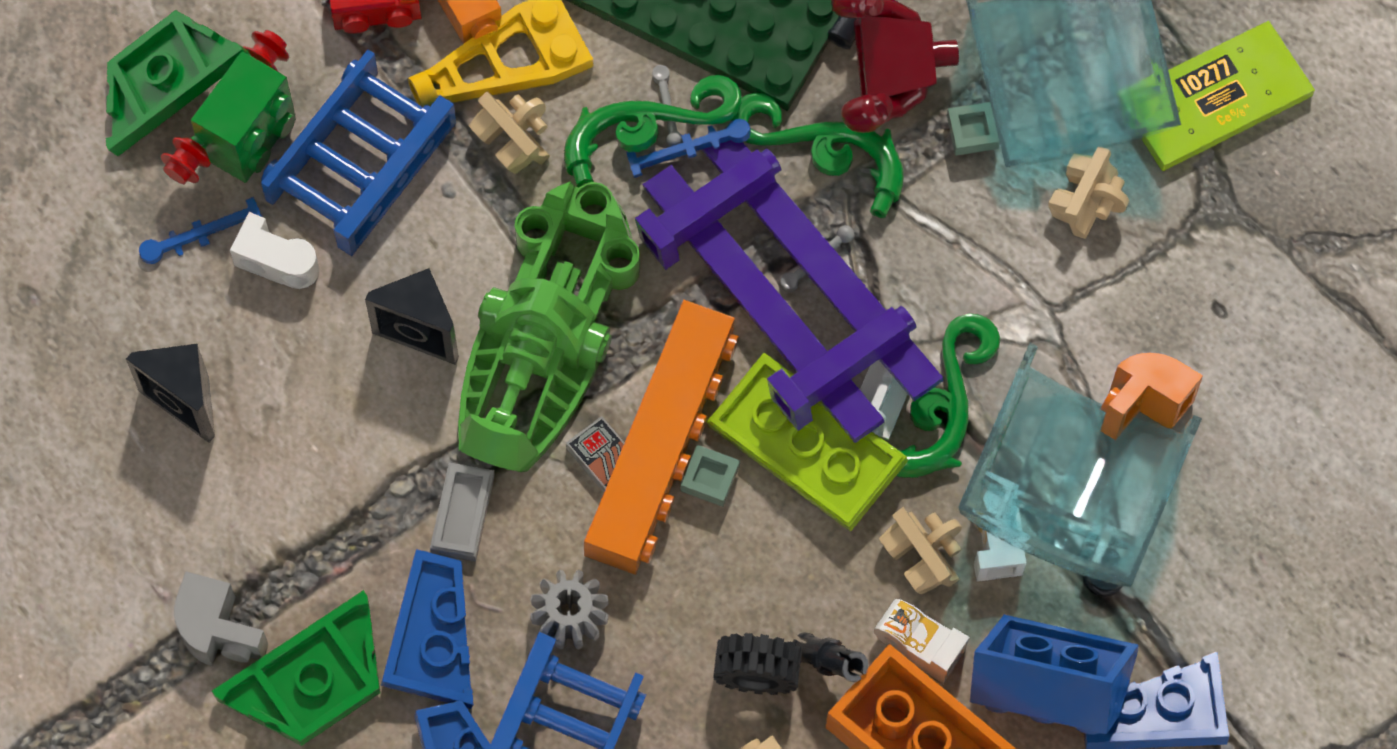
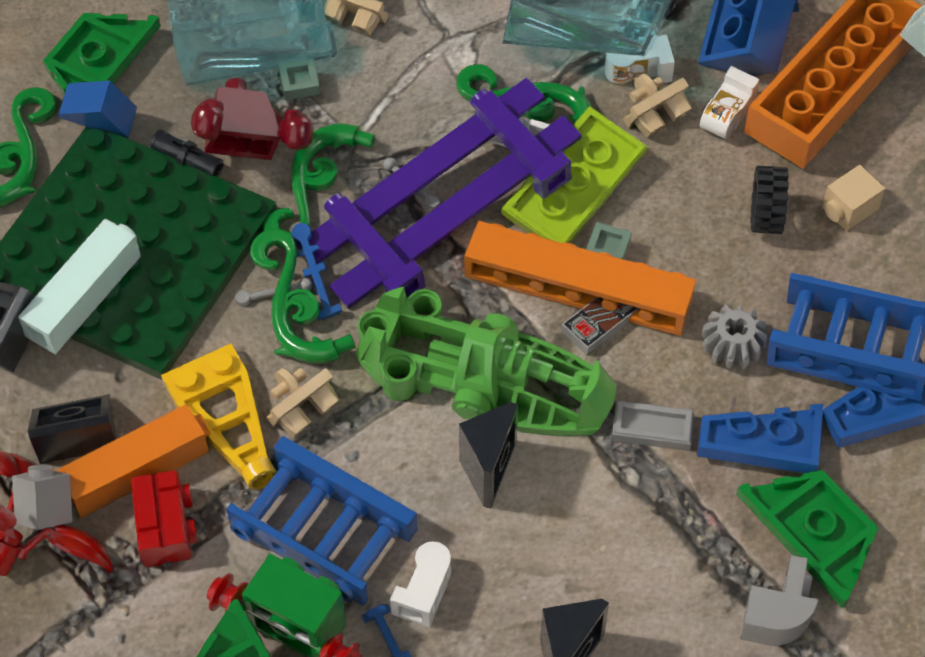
camera: 90 degrees left, 10 degrees down
(831, 657) = (758, 151): black pin -> none

